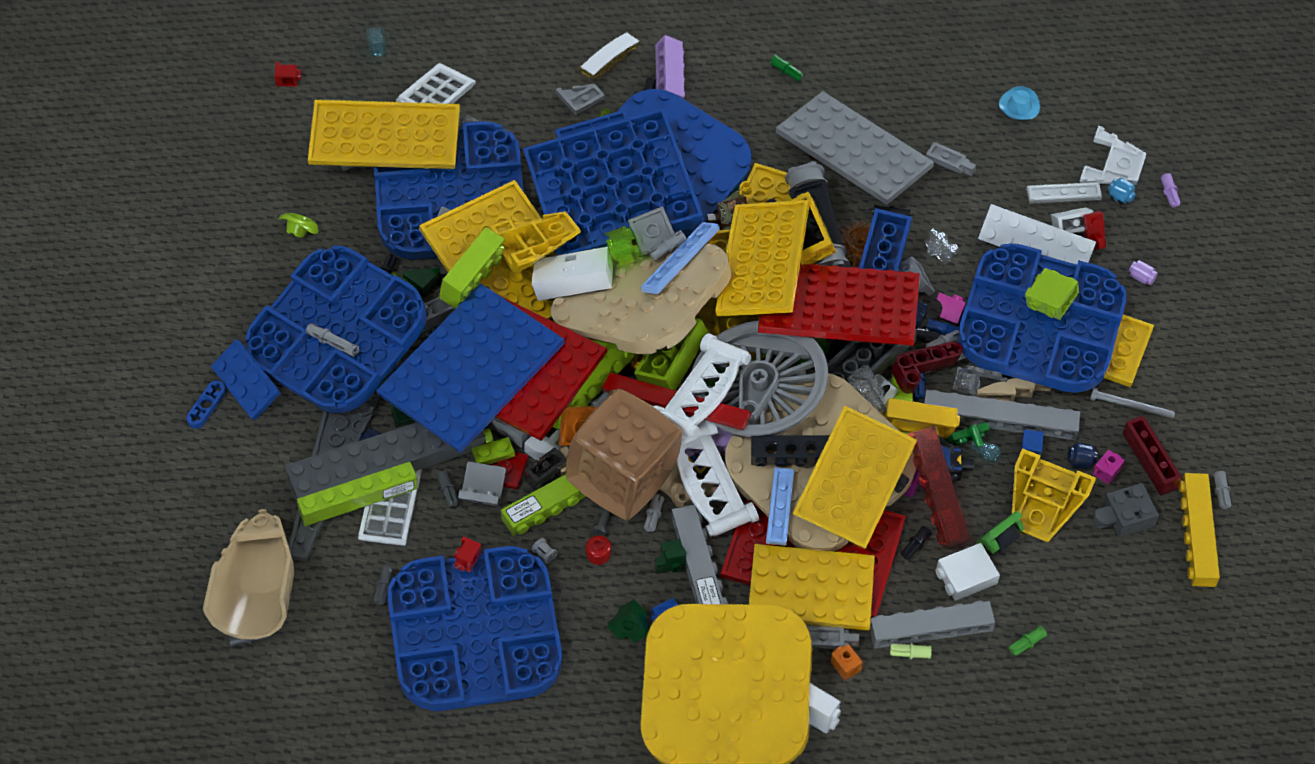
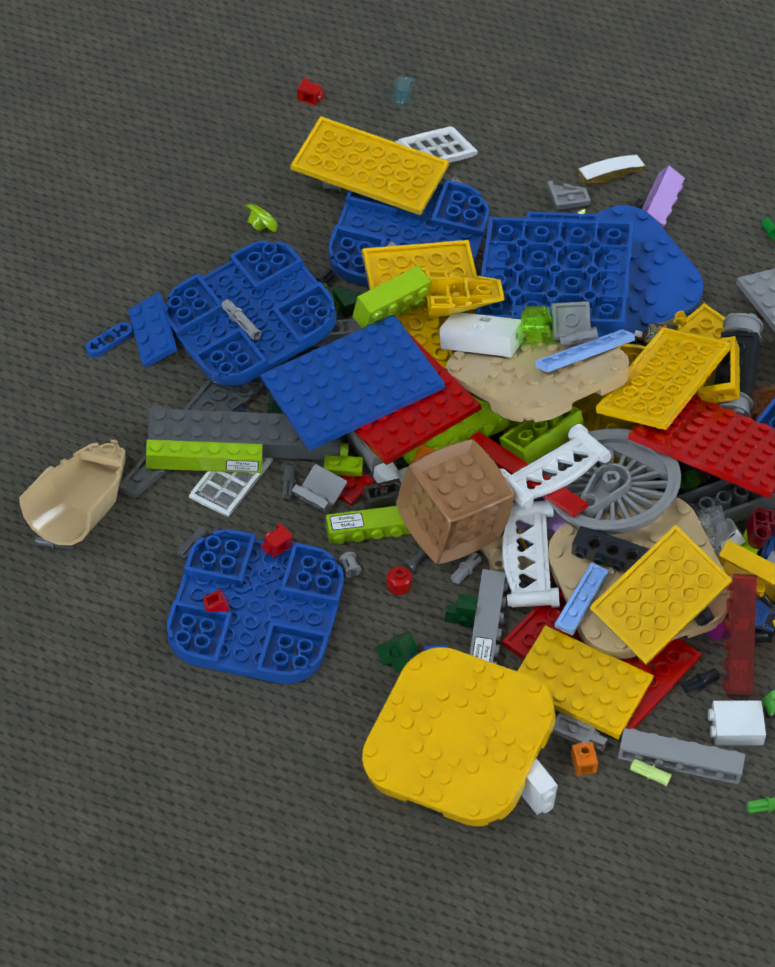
camera: 20 degrees right, 5 degrees down
(437, 640) = (216, 602): none -> red slope

